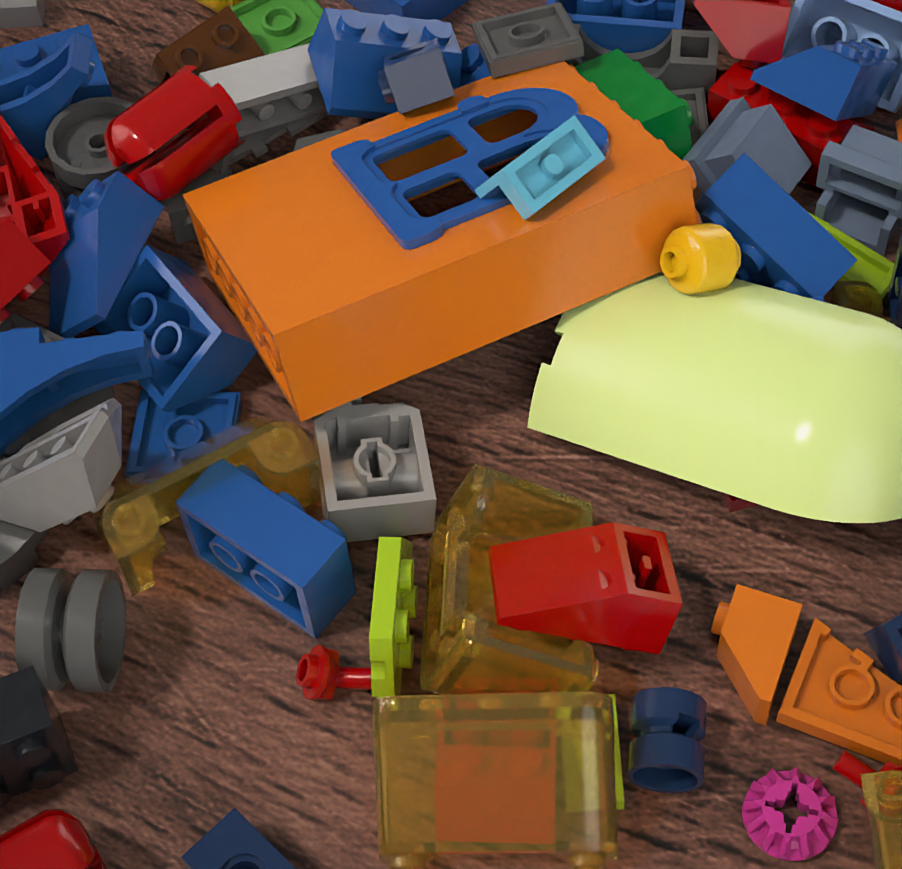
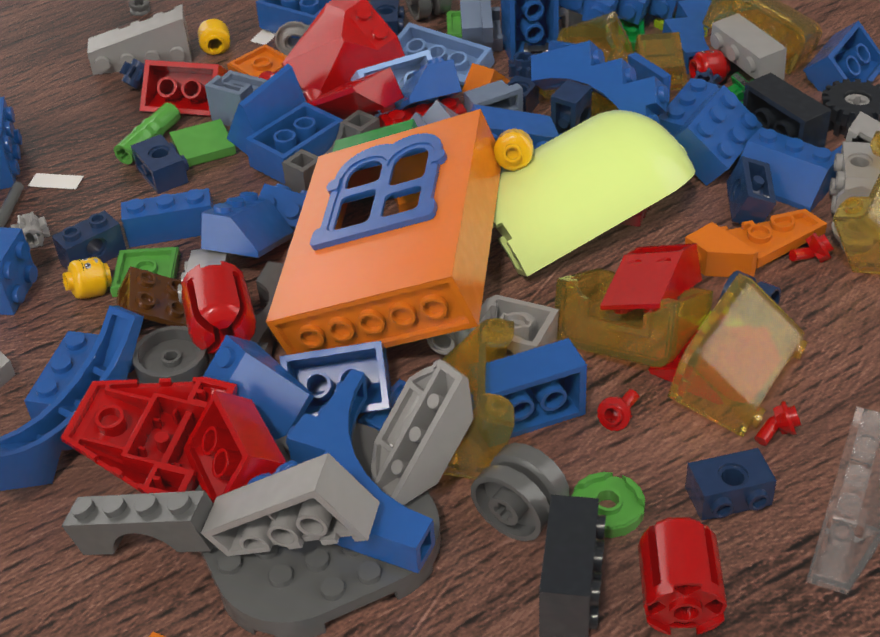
camera: 60 degrees left, 15 degrees down
(165, 773) = (624, 492): none -> bright green tile
(392, 607) = (619, 363): lime wing -> none
(415, 76) = (285, 201): dark blue brick -> none
(527, 39) = (300, 161): dark grey tile -> none
(546, 168) = (433, 145): medium azure panel -> none
(767, 826) = (813, 291): dark pink gear -> none

